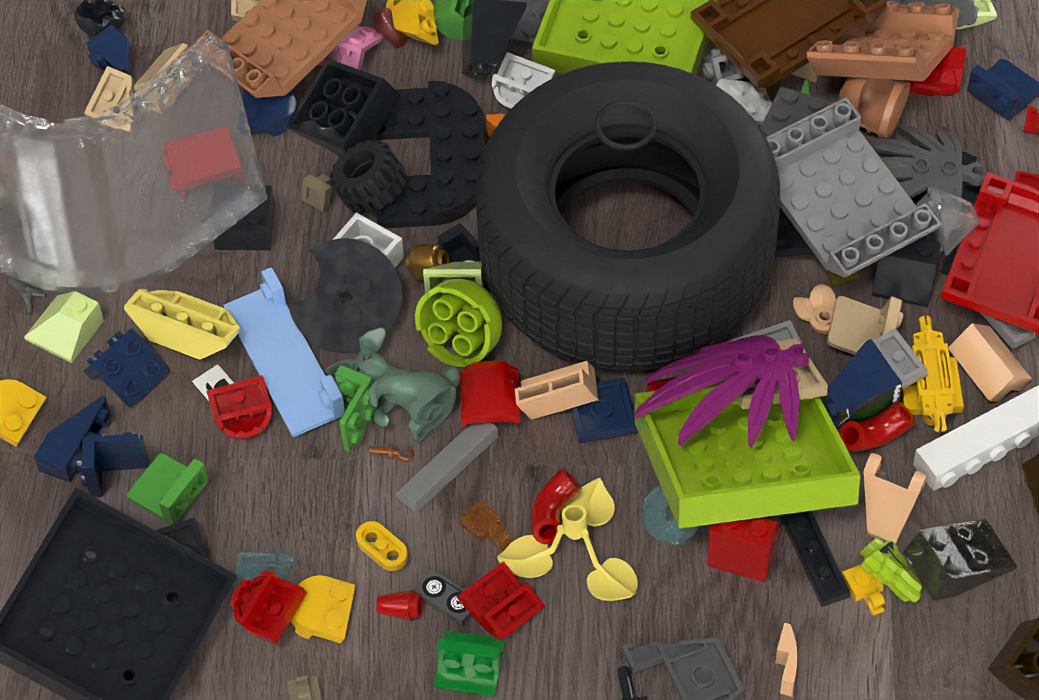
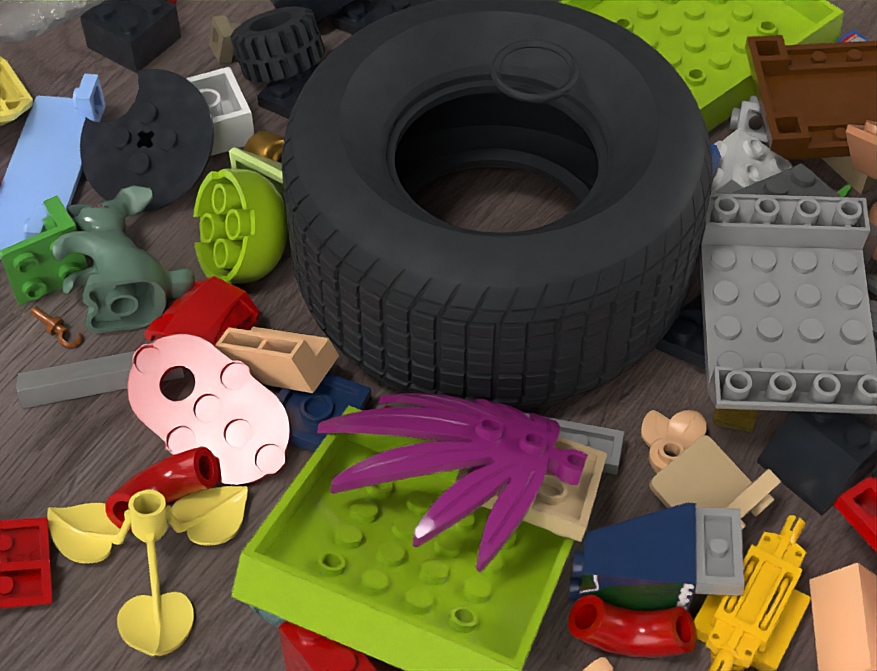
camera: 30 degrees right, 5 degrees down
(484, 522) = (70, 461): clear orange plate -> none
(550, 443) = (225, 411): none -> piece

